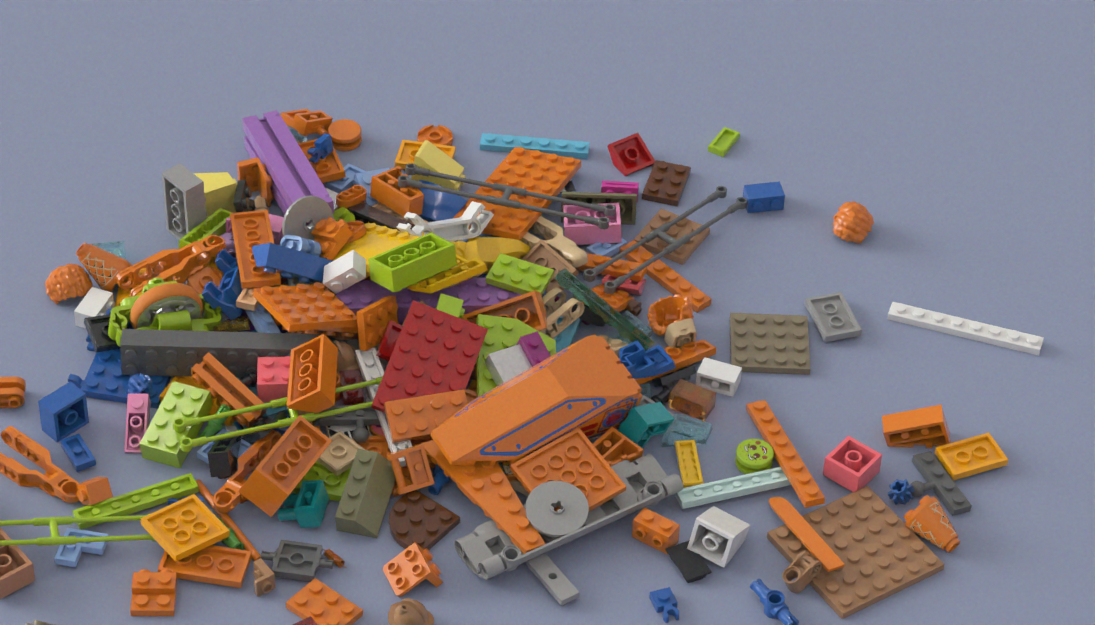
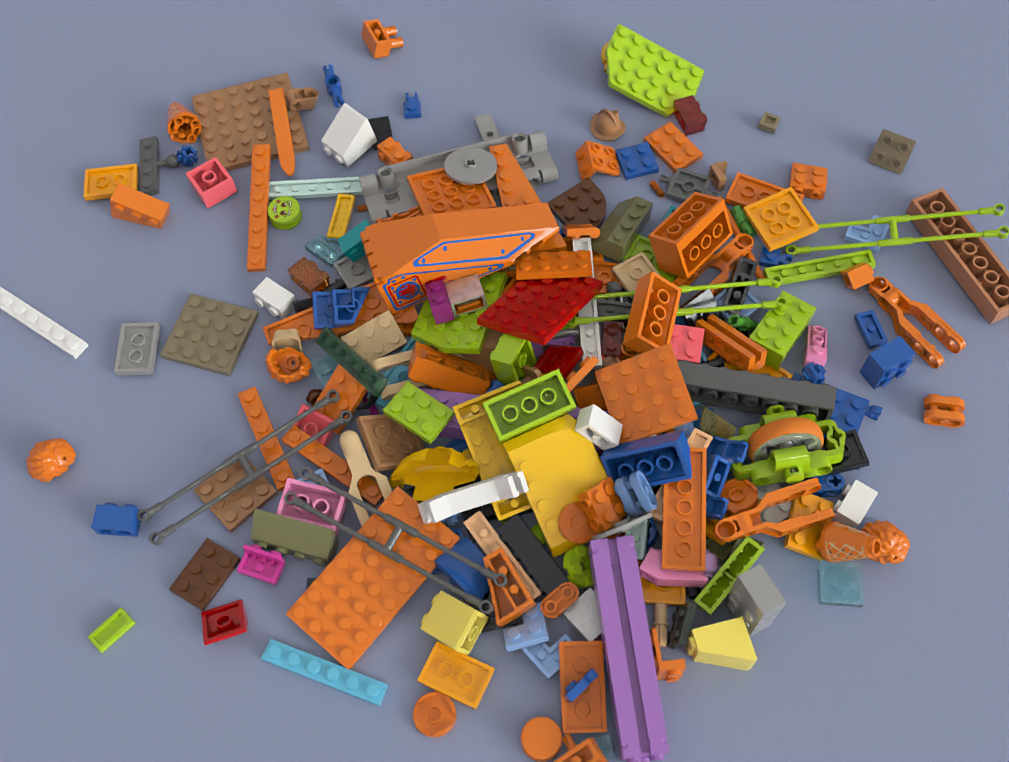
camera: 160 degrees left, 20 degrees up
(365, 585) = (636, 161): none -> blue plate

